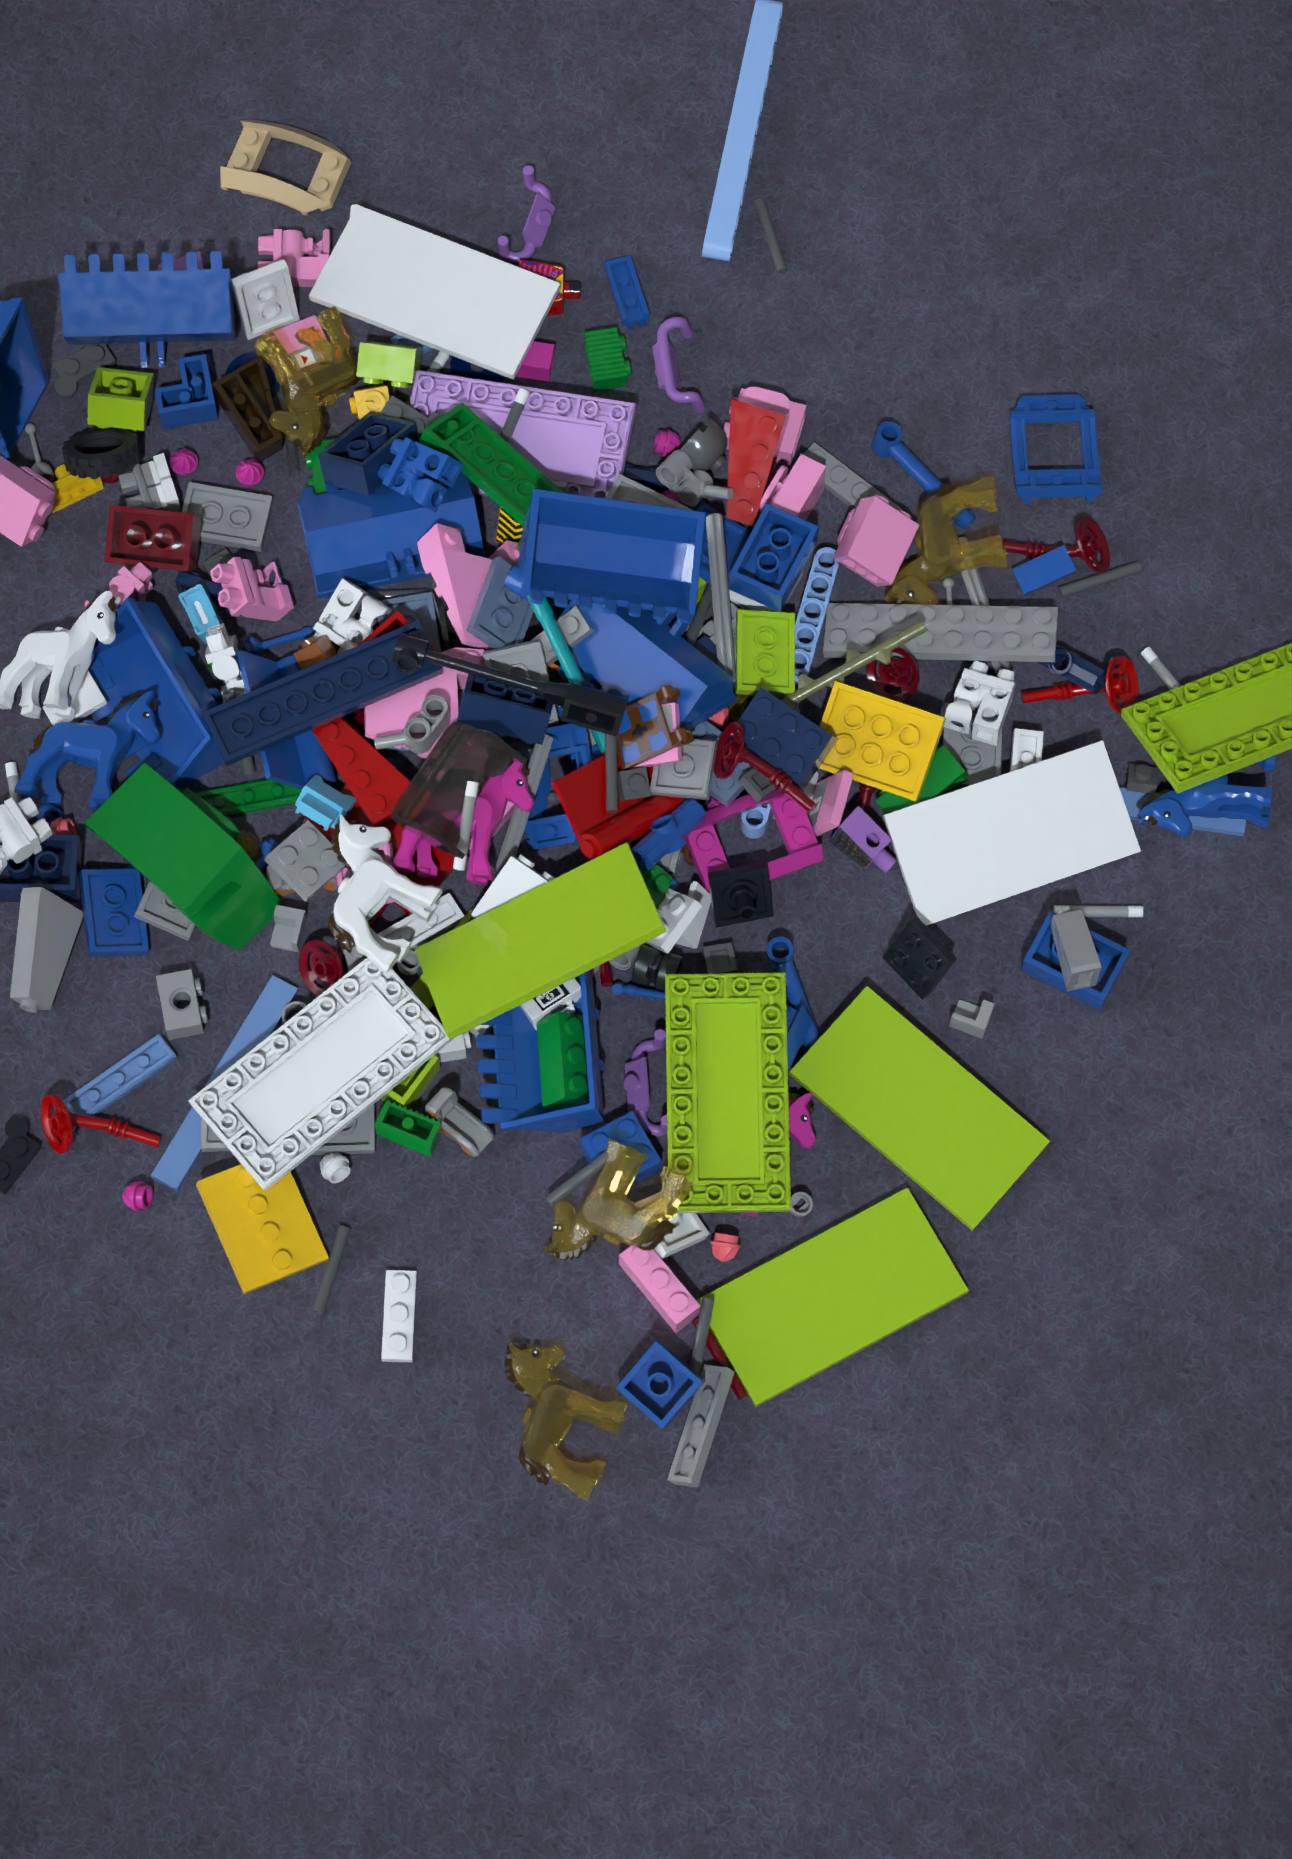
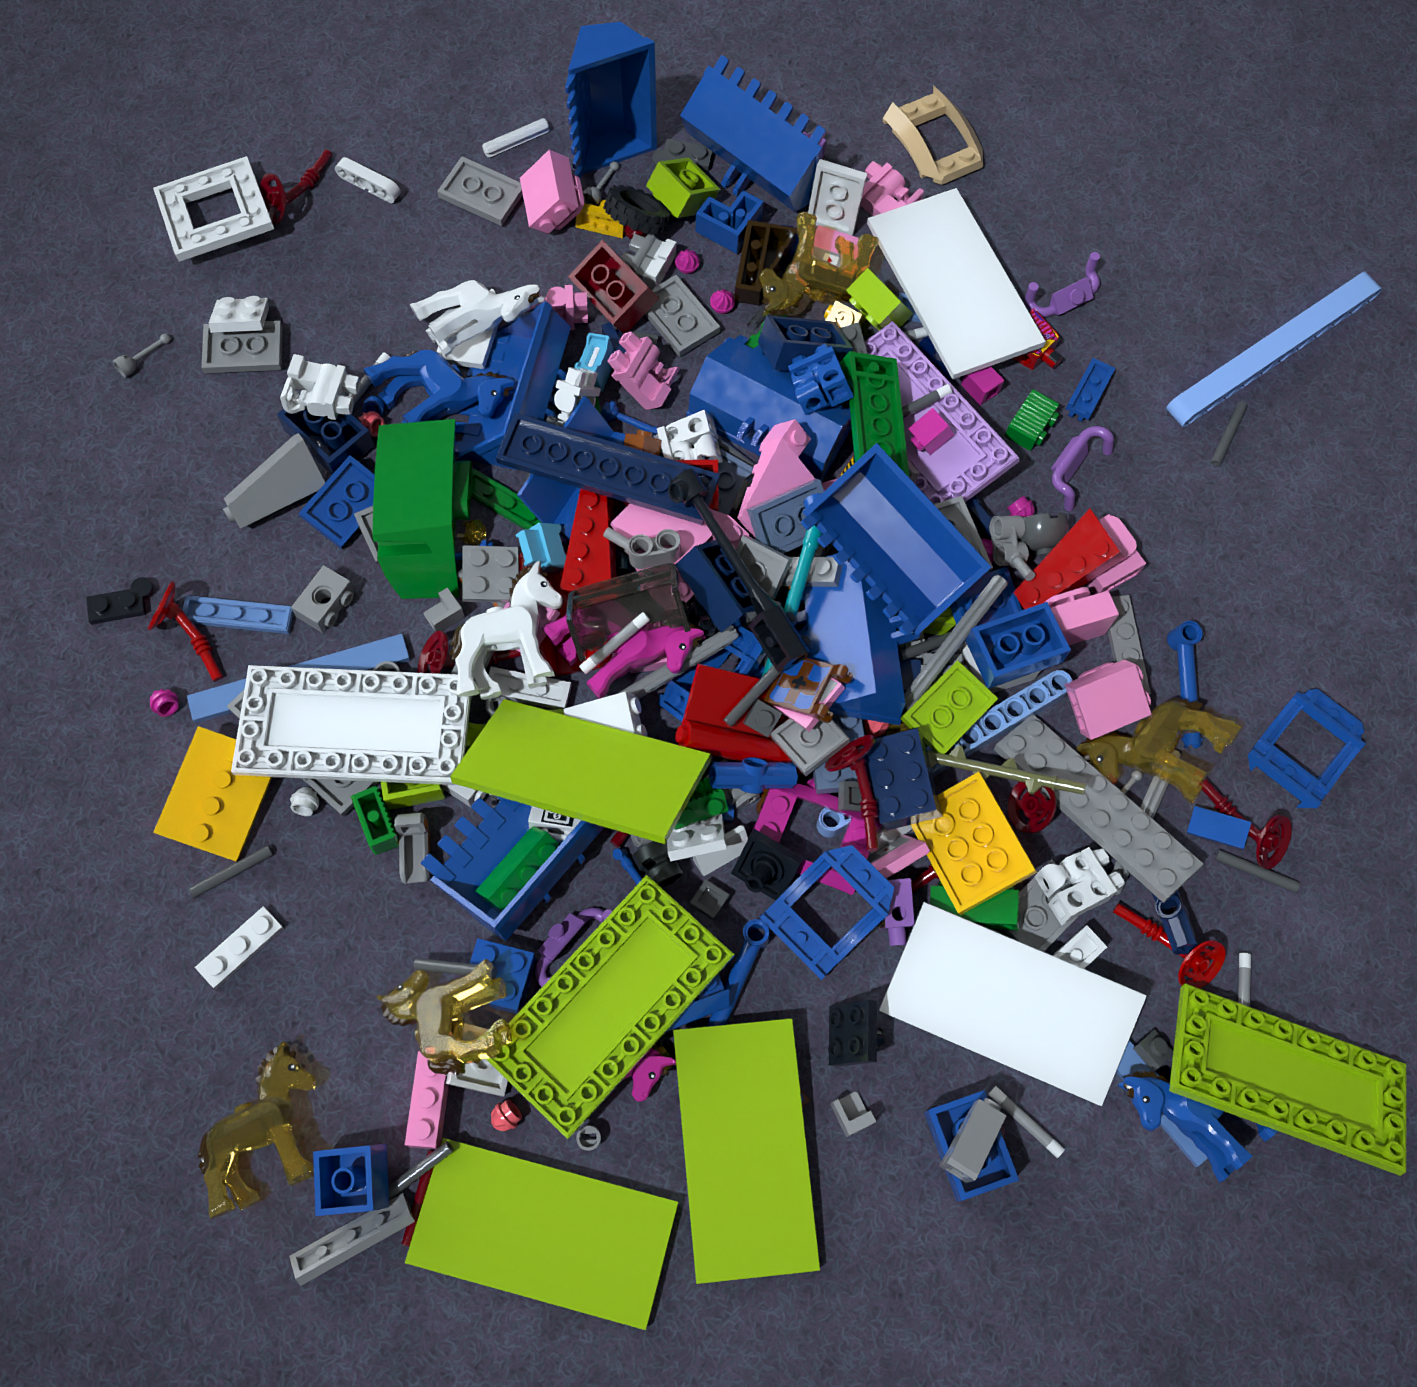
camera: 40 degrees right, 0 degrees up
(543, 441) = (930, 432): none -> dark pink brick
(820, 924) = (802, 937): none -> blue wedge

